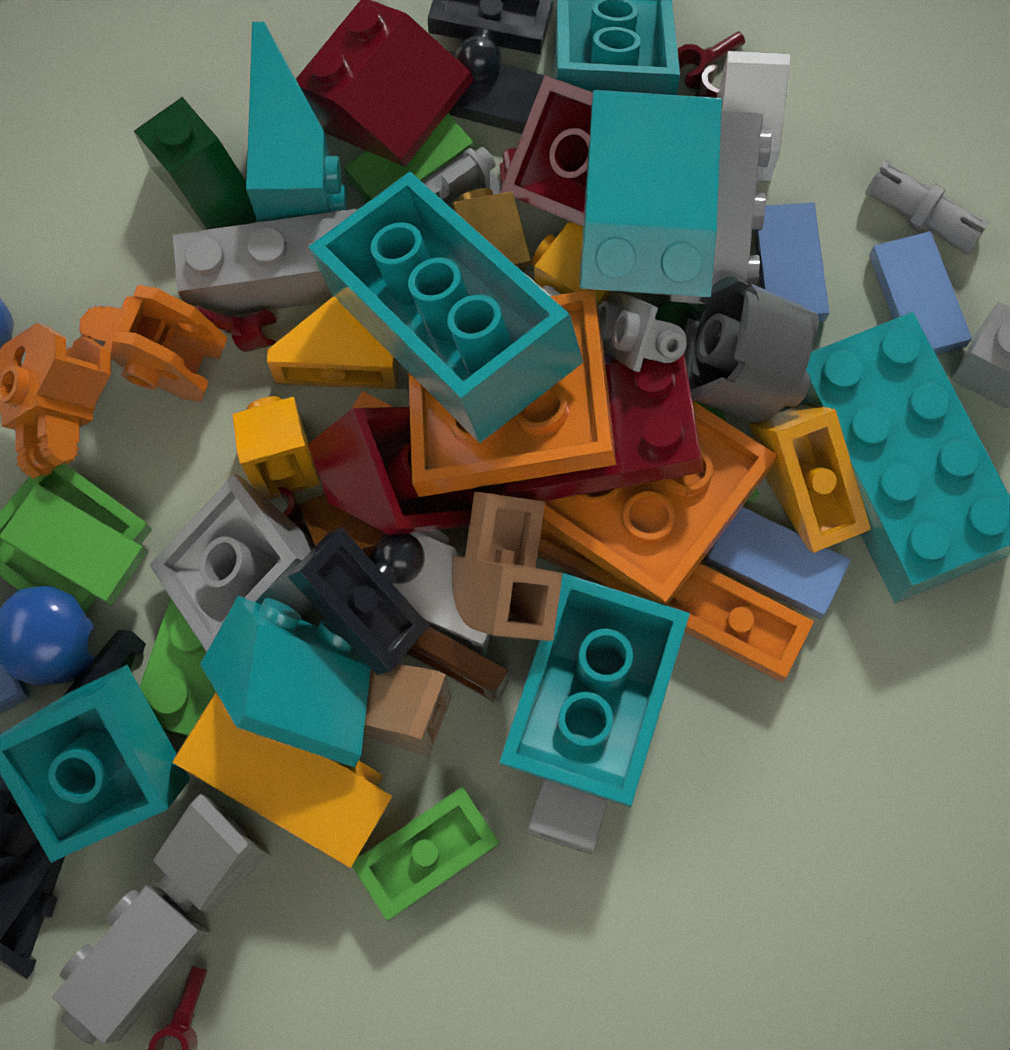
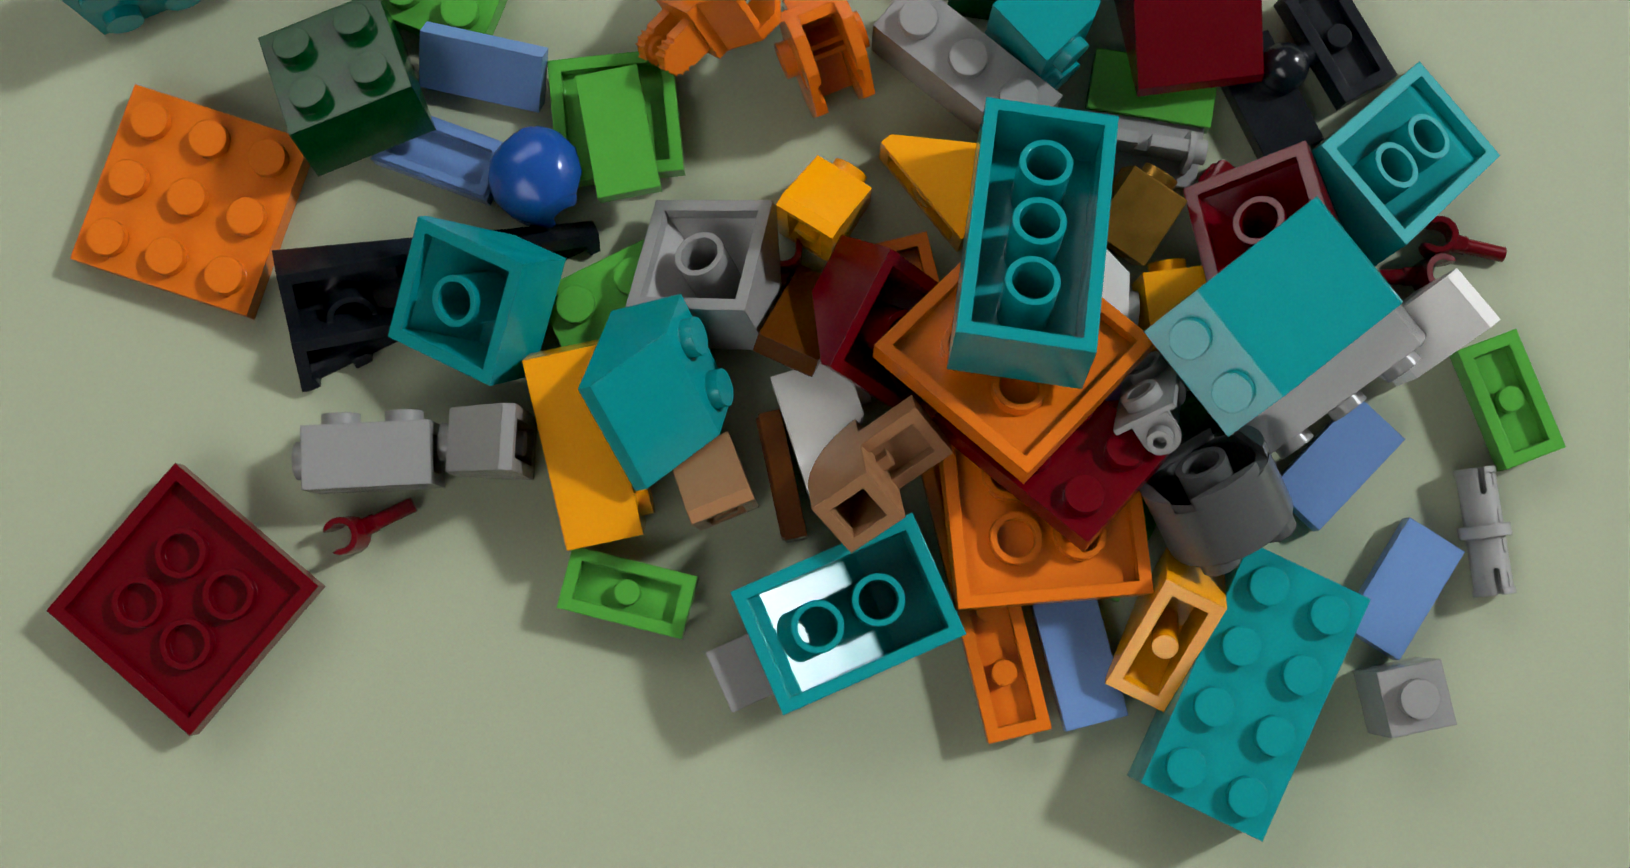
camera: 50 degrees right, 10 degrees up
(245, 329) = (896, 94): dark red hand -> none
(360, 593) = (759, 380): black plate -> none
(846, 115) = (1507, 400): none -> bright green plate

